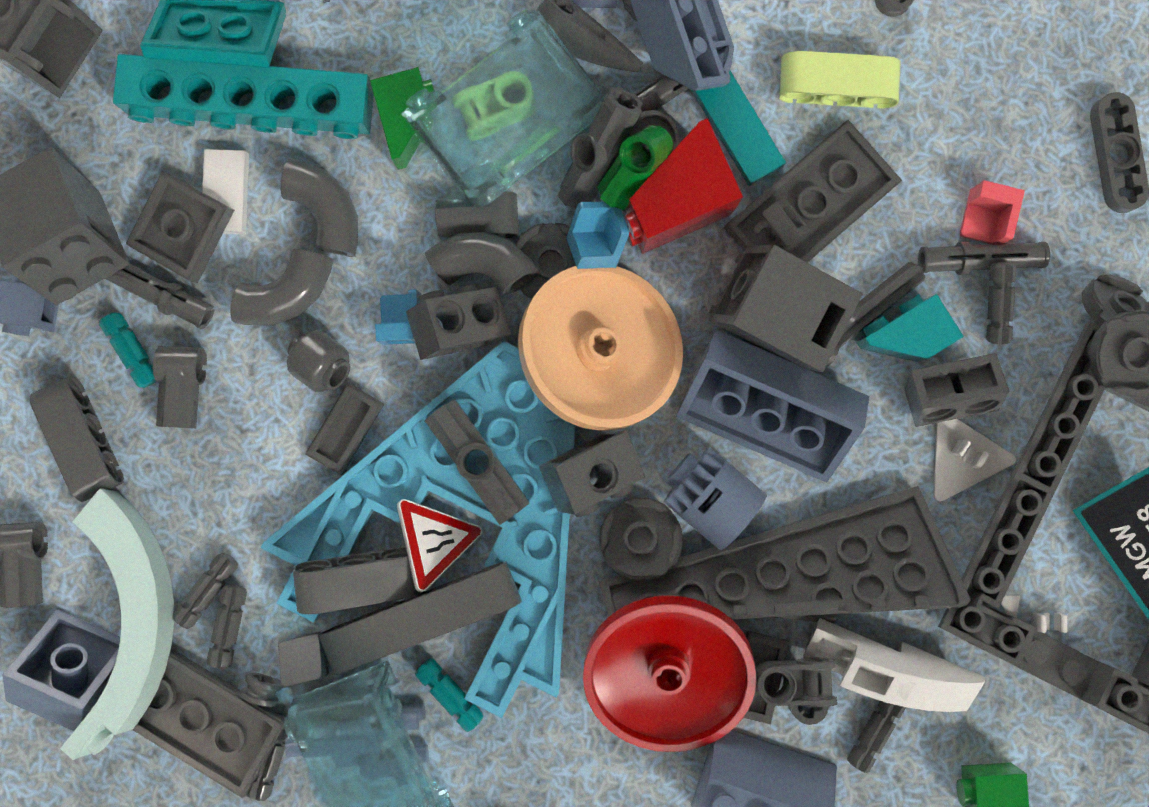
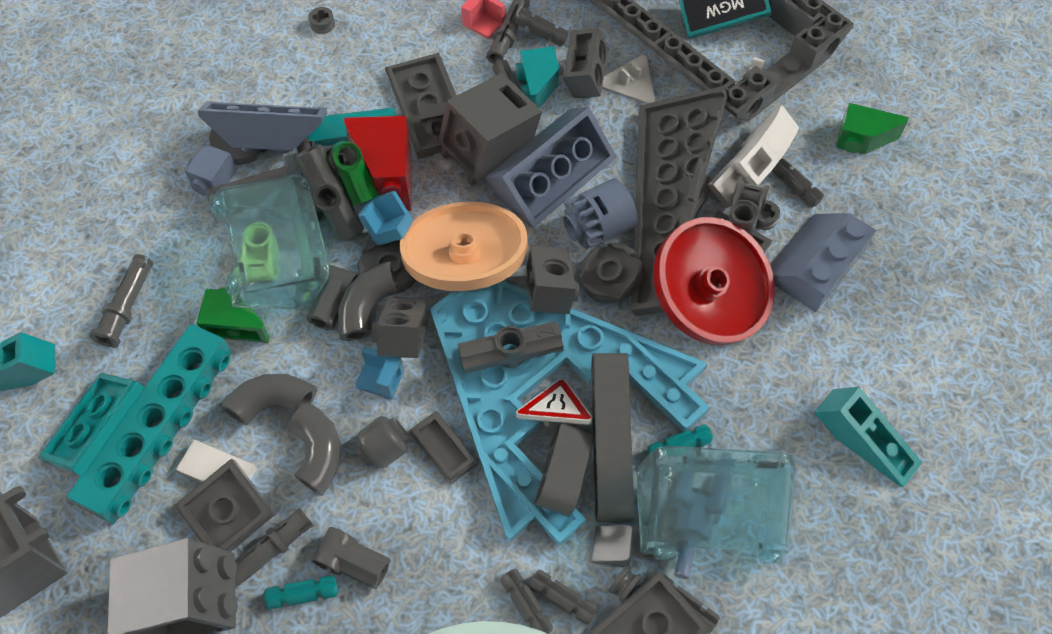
camera: 70 degrees left, 25 degrees down
(840, 78) = (356, 61): yellowish green beam -> none

